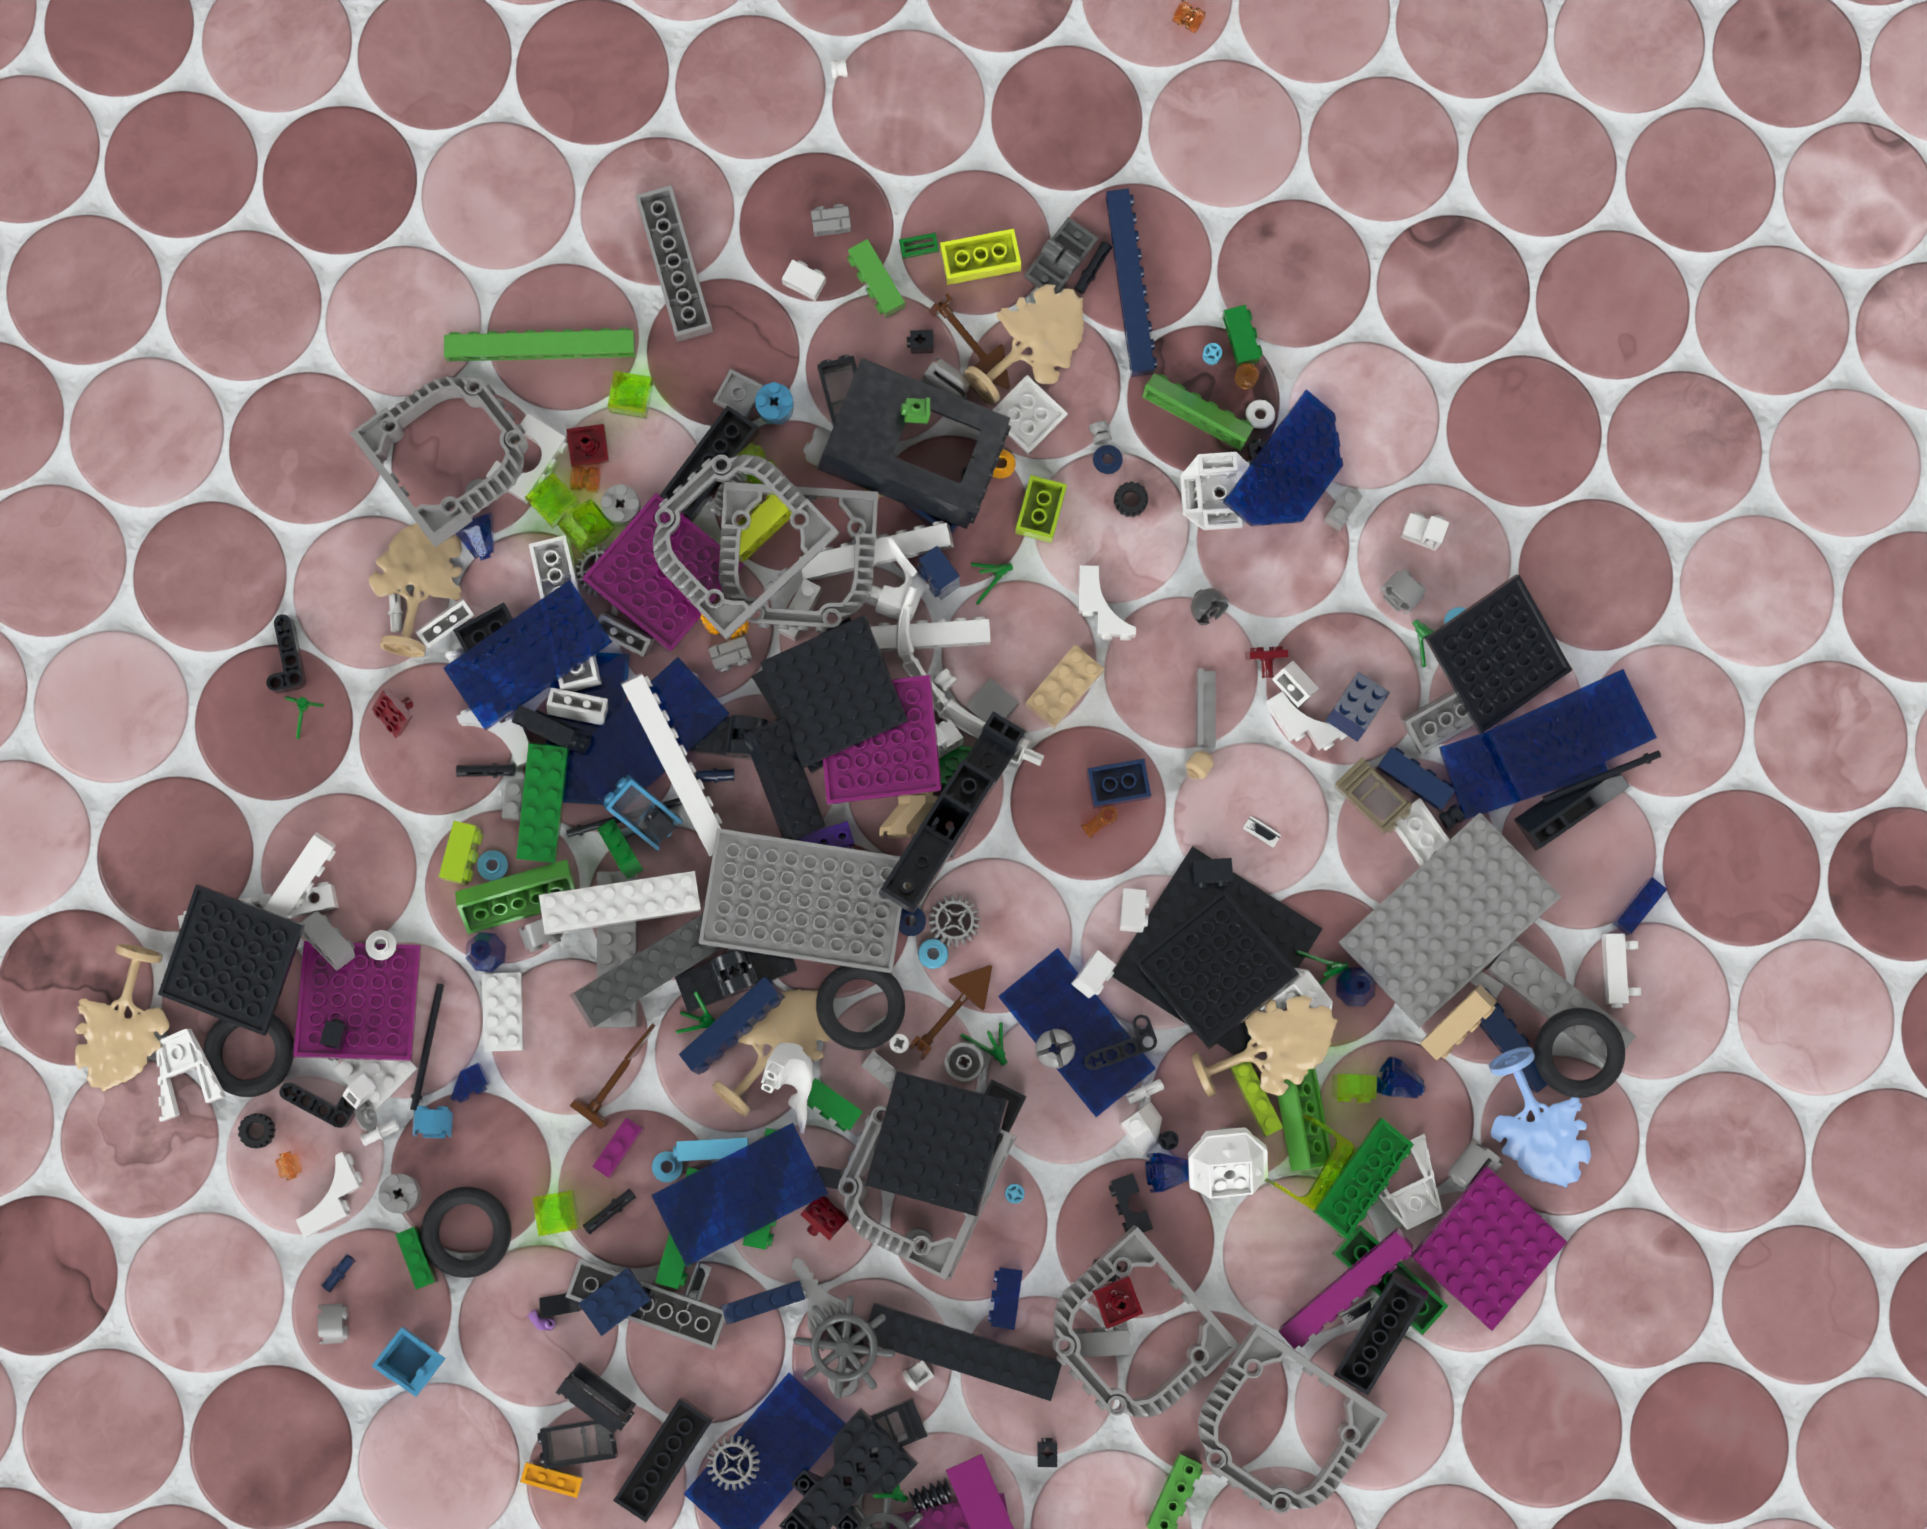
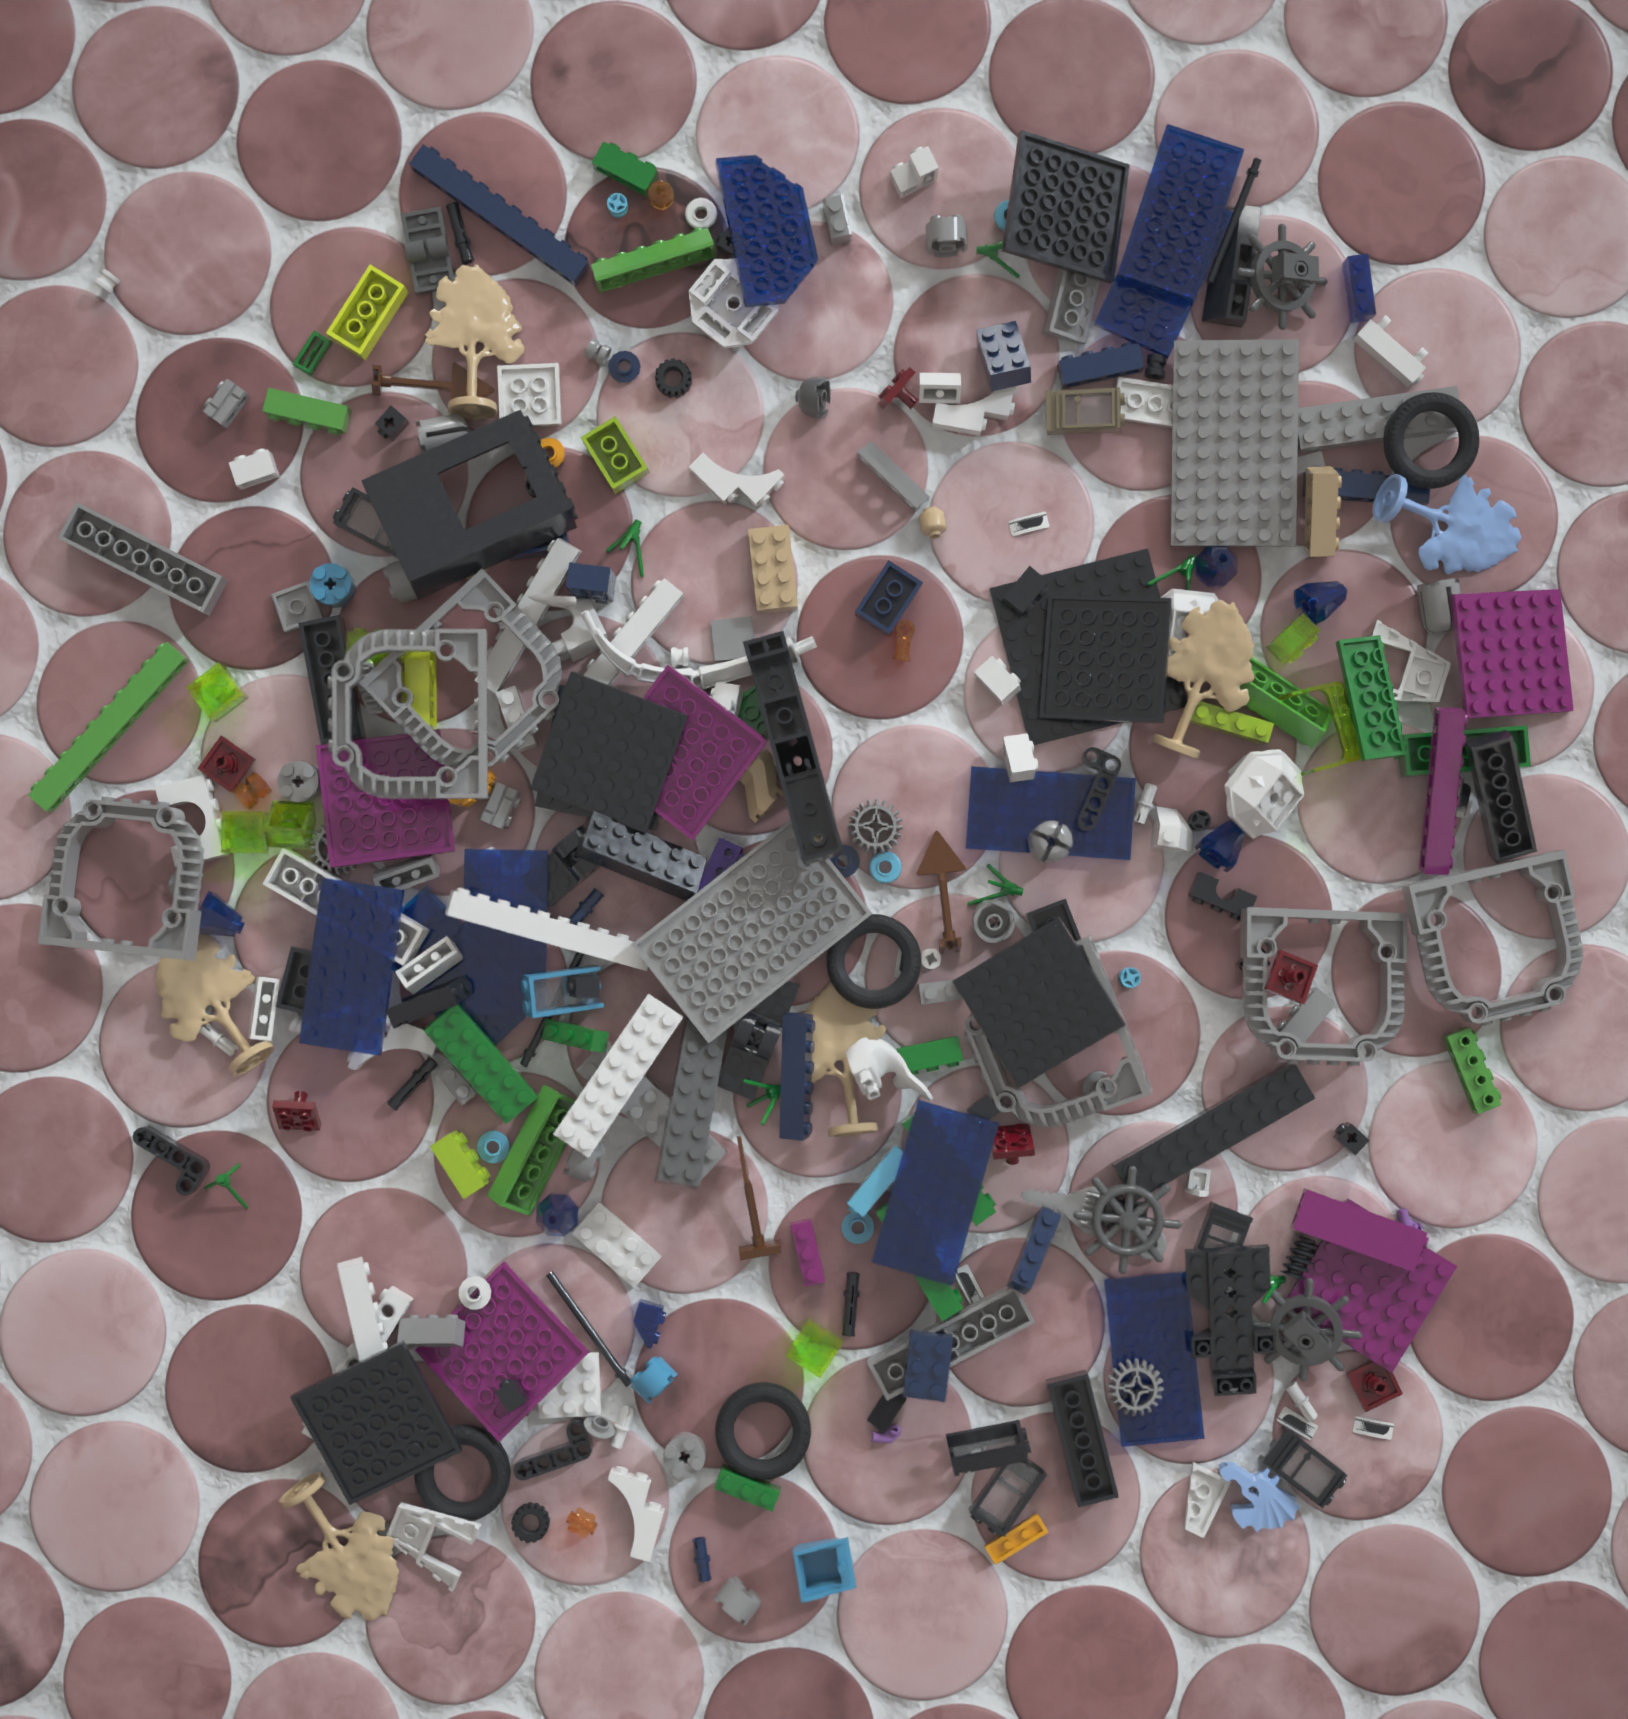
camera: 40 degrees left, 5 degrees up
(359, 1091) = (575, 1414): white brick -> none
(916, 410) = (445, 476): bright green brick -> none
(1005, 1298) = (1203, 1059): clear blue brick -> none
(1598, 845) = (1289, 268): none -> dark grey piece

